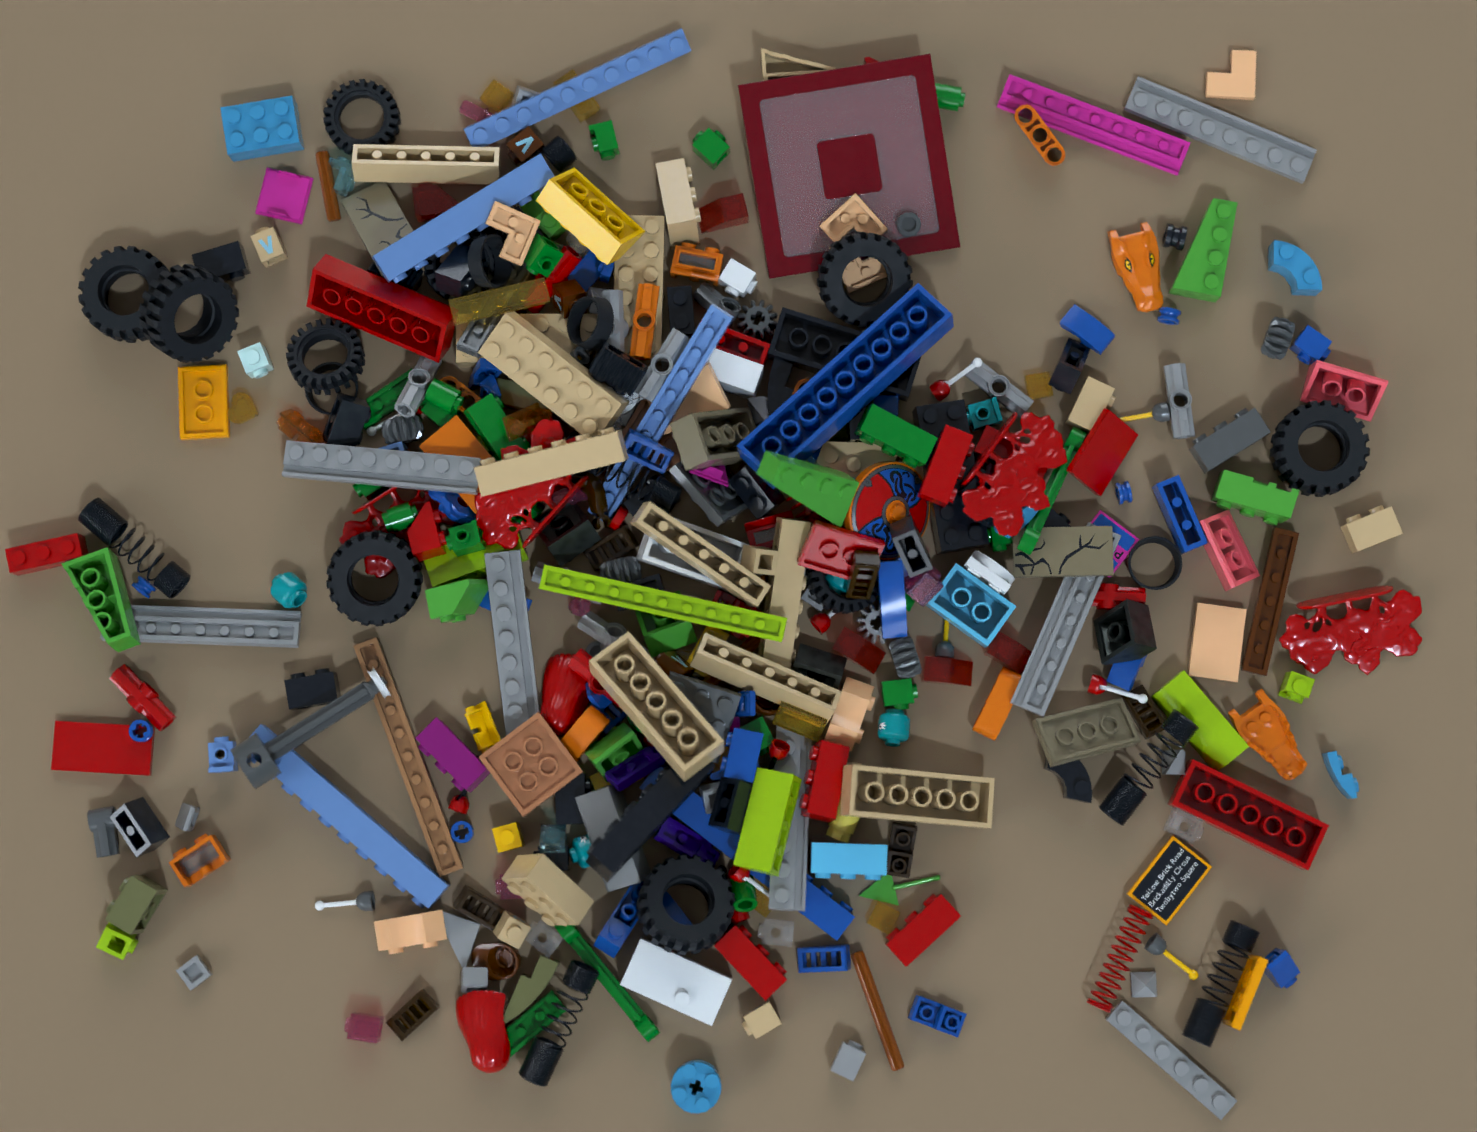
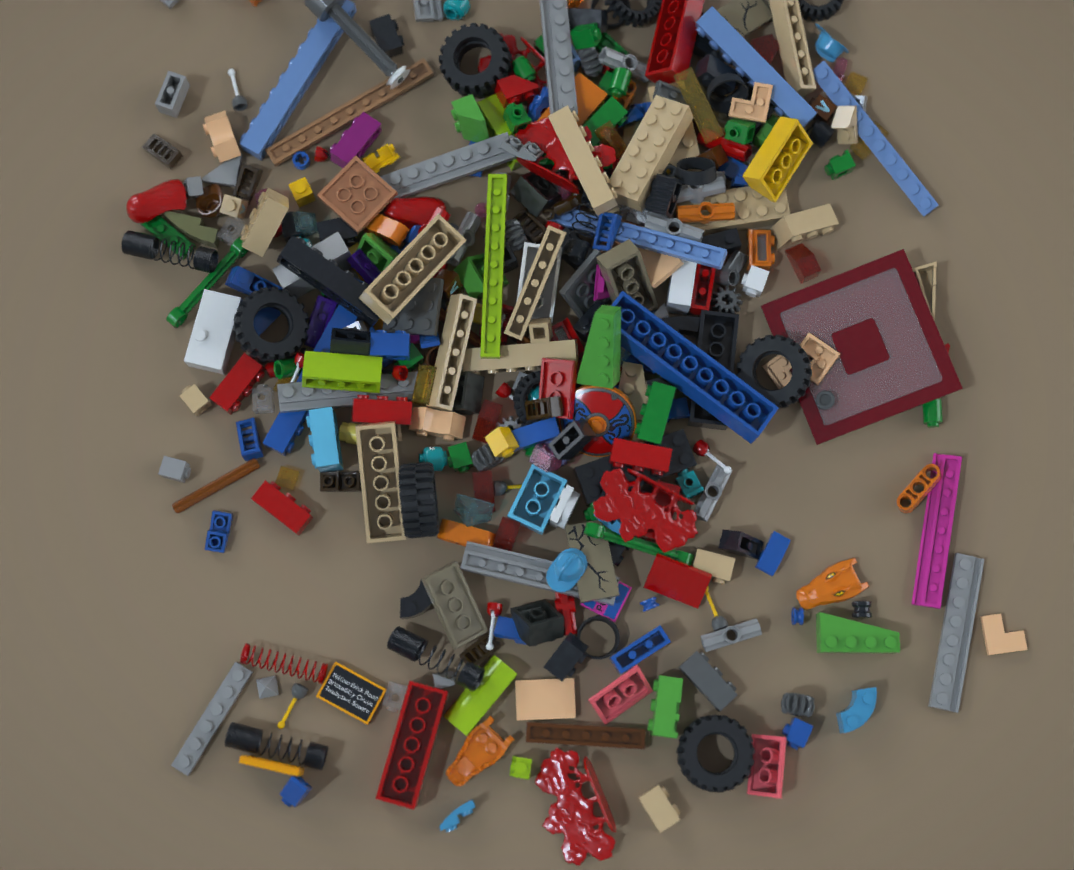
camera: 75 degrees right, 5 degrees down
(339, 988) = (172, 94): none -> light grey brick
(364, 1027) = (147, 118): clear pink brick -> none
(371, 427) = (585, 36): none -> green brick
(444, 120) = (828, 47): none -> dark azure piece
(521, 532) = (529, 151): none -> light grey slope
(554, 120) = (846, 124): none -> tan slope
(702, 1099) = (131, 352): dark azure brick -> none
(710, 147) = (852, 243): green brick -> none
(884, 889) = (308, 476): bright green piece -> none
(896, 634) = (502, 442): none -> yellow brick
(951, 751) = (418, 500): none -> black tyre
(969, 689) = (472, 510): none -> clear light blue slope
(1038, 386) = (720, 523): clear yellow tile -> none
(1070, 584) = (566, 570): none -> dark azure piece
(1173, 605) = (566, 656): none -> black brick

